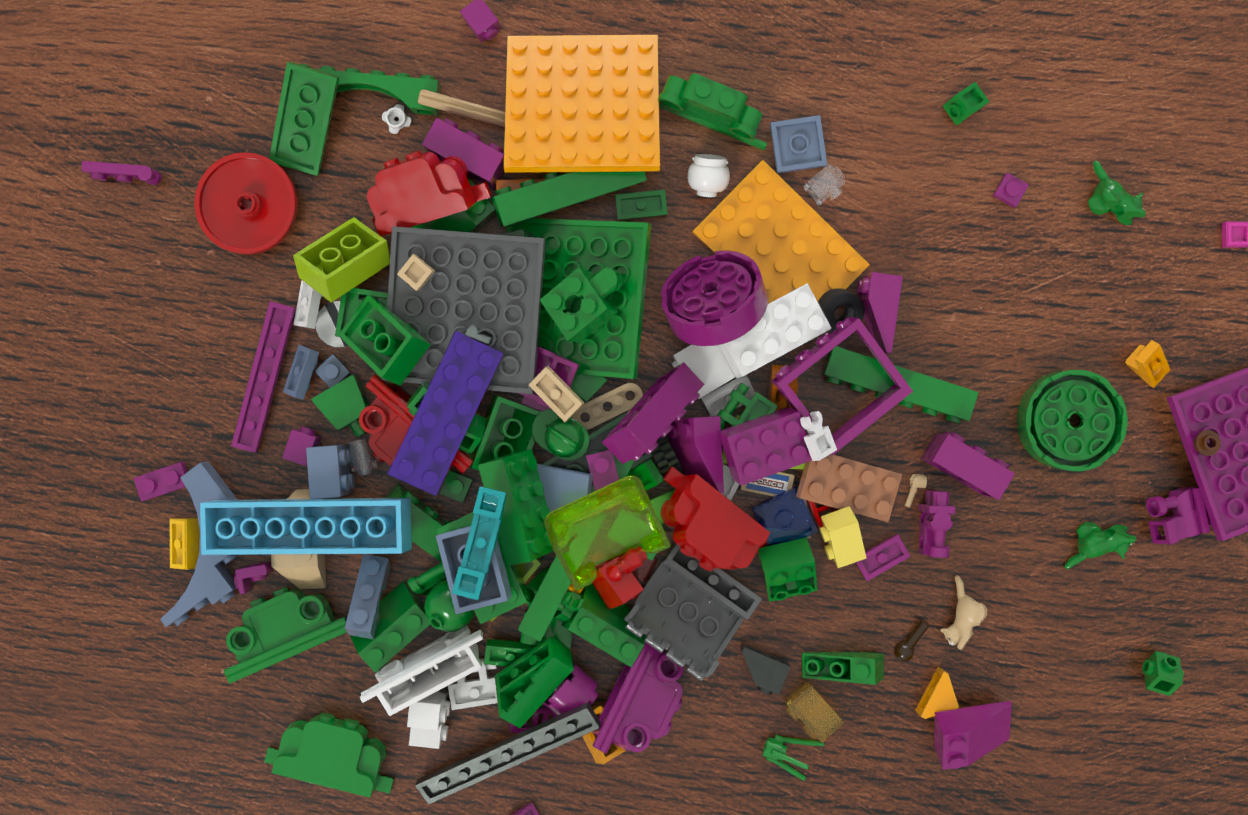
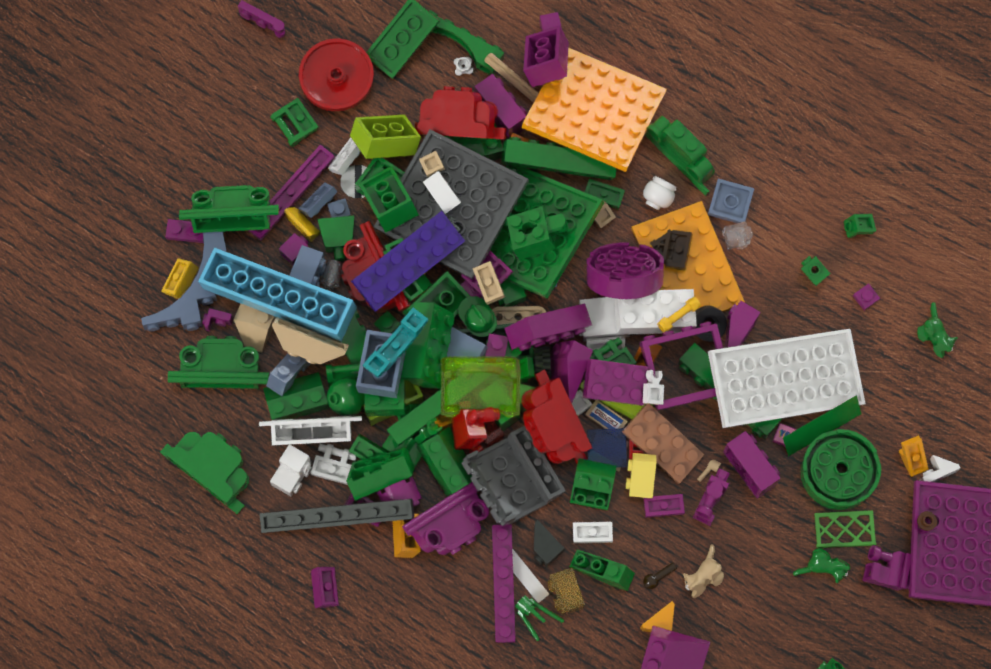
camera: 25 degrees right, 15 degrees down
(198, 438) = (230, 209): none -> green brick
(229, 278) = (300, 119): none -> green plate
(295, 408) = (301, 223): none -> yellow slope
(370, 572) = (307, 343): none -> tan wedge
(445, 304) = (441, 192): none -> white slope
(492, 63) = (546, 56): none -> magenta brick
(657, 232) = (604, 216): none -> tan plate
(738, 738) = (503, 584): none -> magenta plate
(749, 707) = (528, 579): none -> white sticker
(757, 237) = (674, 248): none -> dark brown slope
(812, 627) = (592, 532): none -> white plate
(817, 307) = (666, 323): none -> yellow bar
(937, 187) = (821, 272): none -> green brick
(965, 343) = (785, 377): none -> white plate
(987, 407) = (782, 431): none -> tile
(1027, 376) = (825, 423): none -> green sticker
(1121, 495) = (853, 515): none -> bright green window
(1190, 368) = (942, 467): none -> white slope

